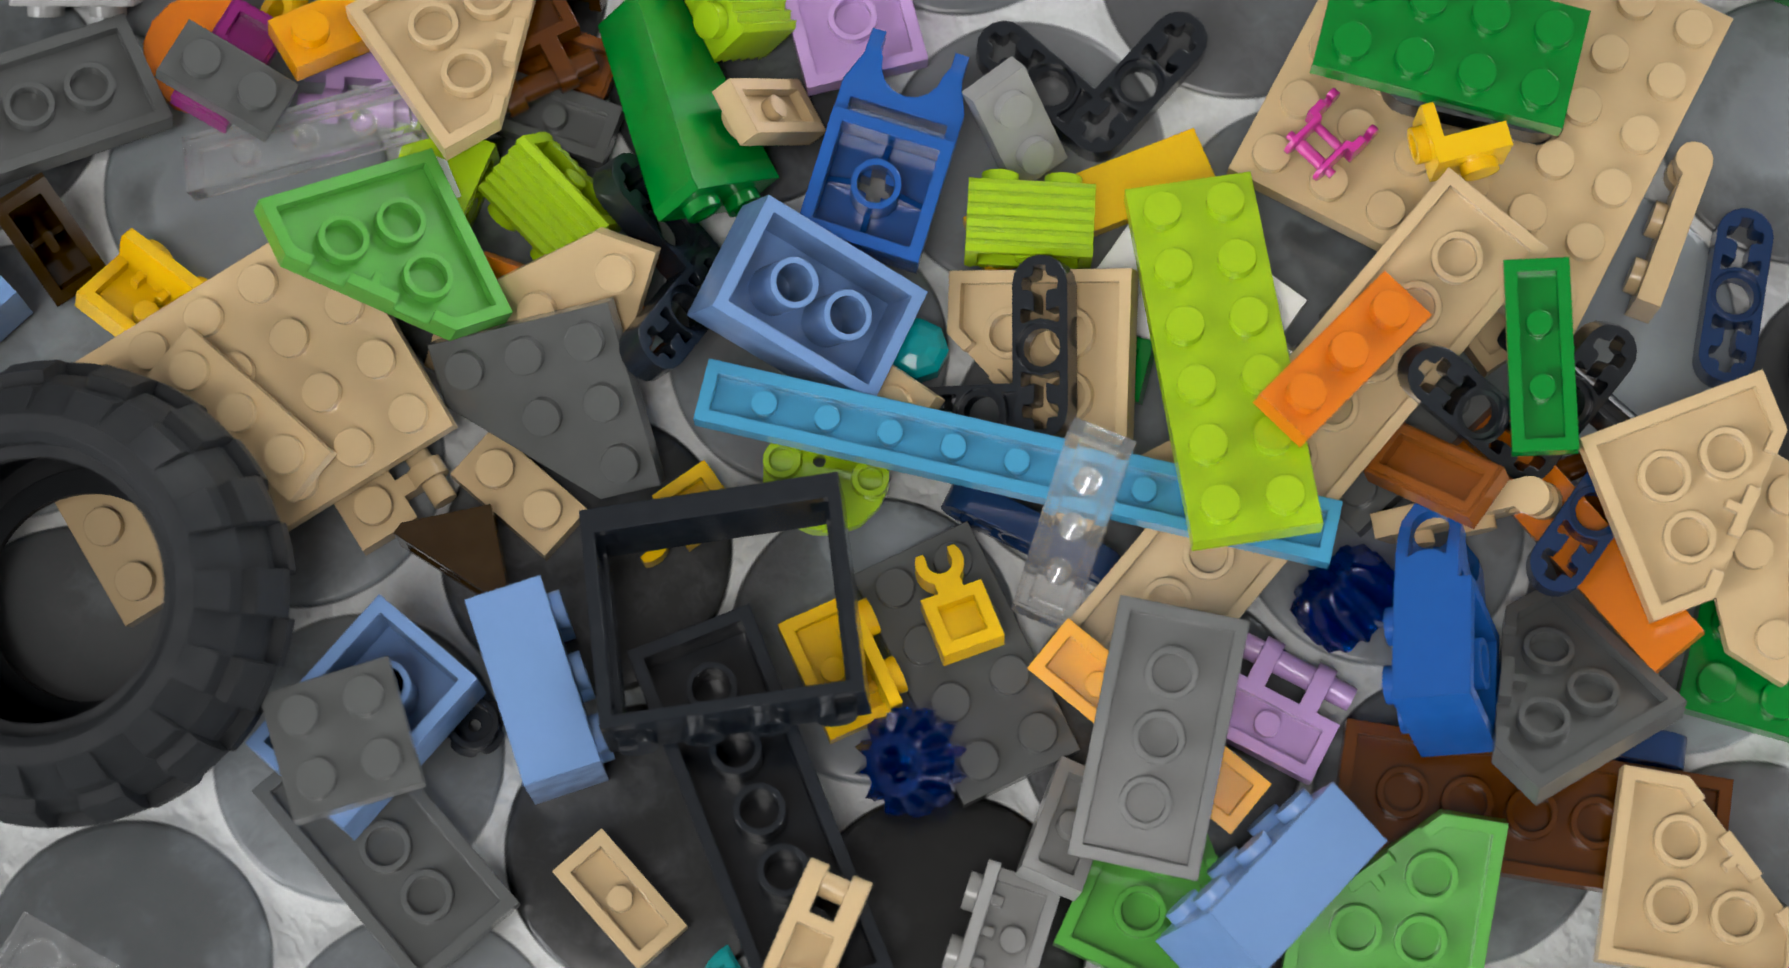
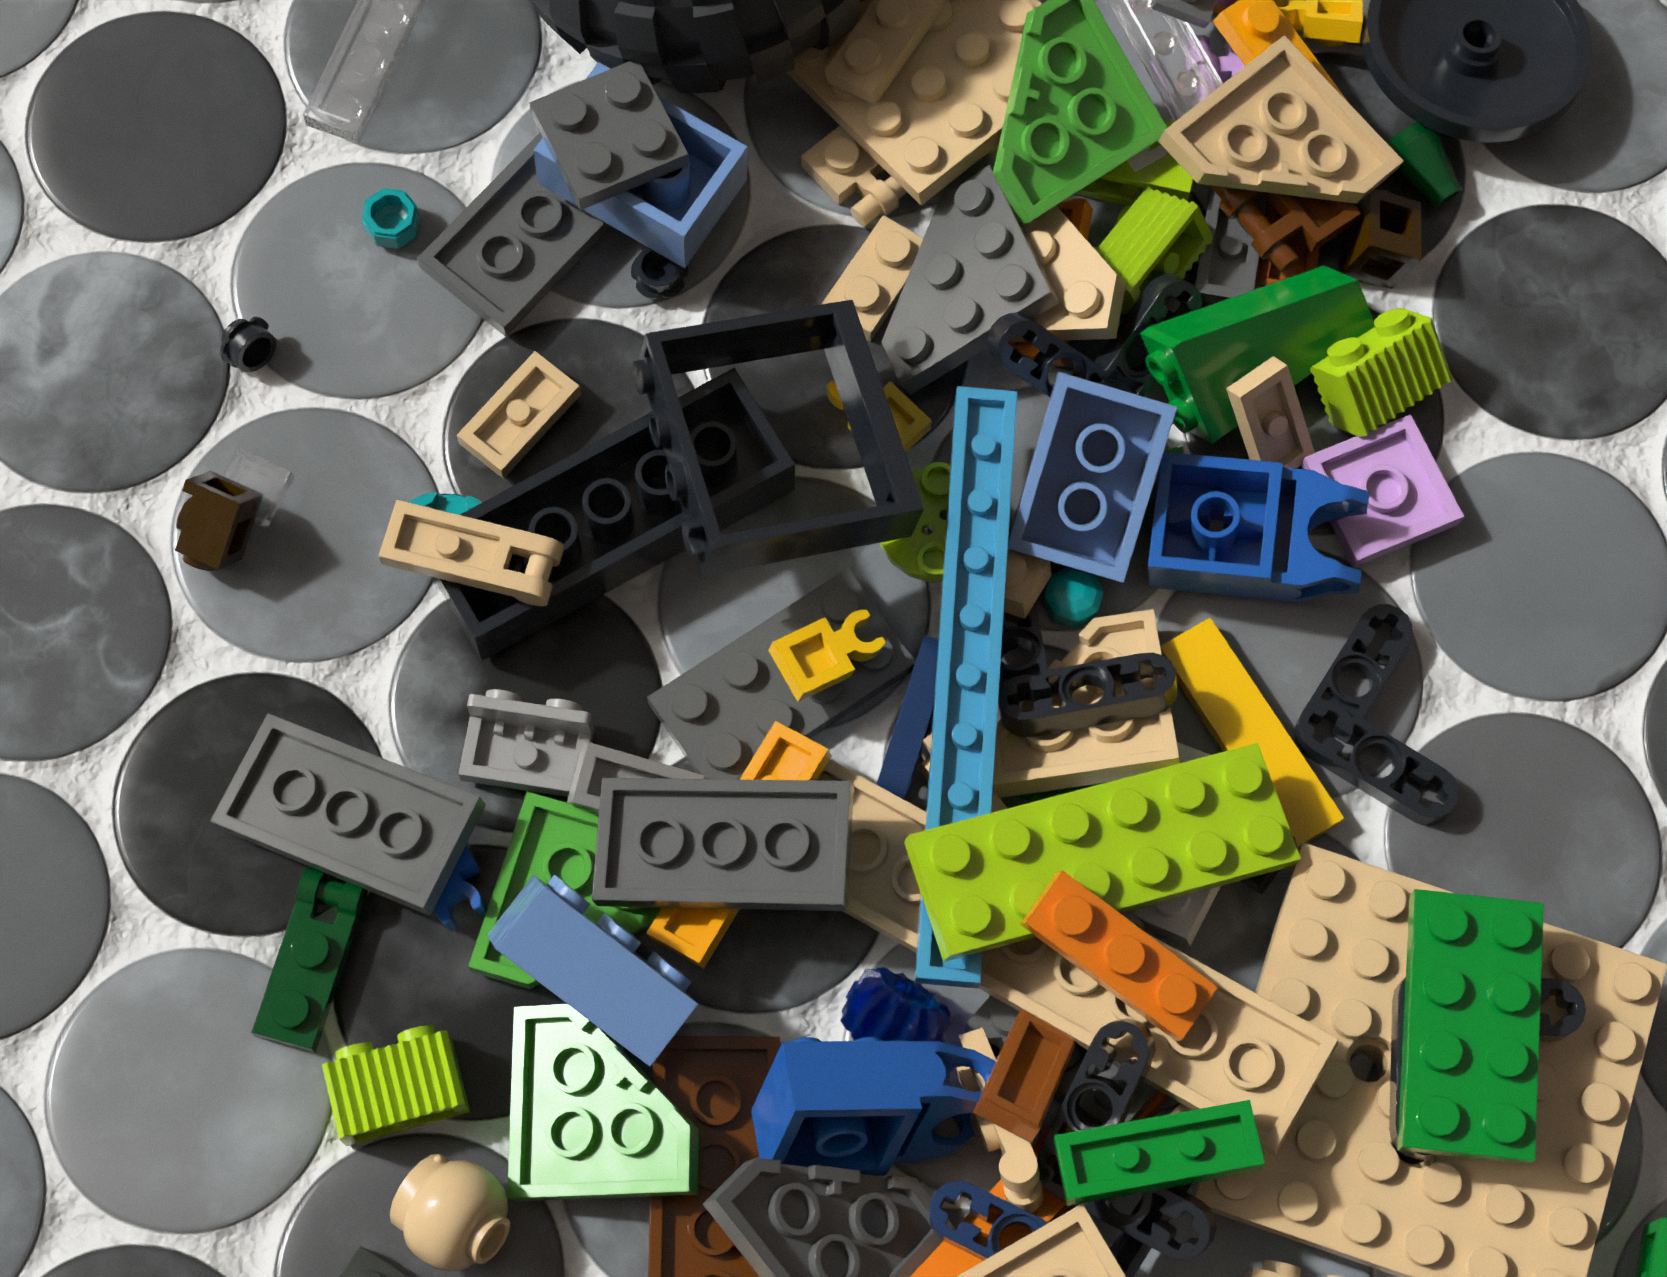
camera: 80 degrees right, 5 degrees down
(461, 546) = (813, 240): dark brown slope -> none
(540, 688) = (702, 283): medium blue brick -> none
(817, 656) = (749, 593): yellow bracket -> none
(913, 736) = (676, 637): clear blue gear -> none
(1014, 121) = (1306, 642): light grey plate -> none
(1029, 218) = (1213, 668): lime brick -> none
(1073, 523) = (917, 730): clear tile -> none
(1277, 728) = (764, 966): lavender plate -> none
(1347, 149) = (1319, 925): dark pink piece -> none
(1468, 153) = (1359, 1061): yellow bracket -> none

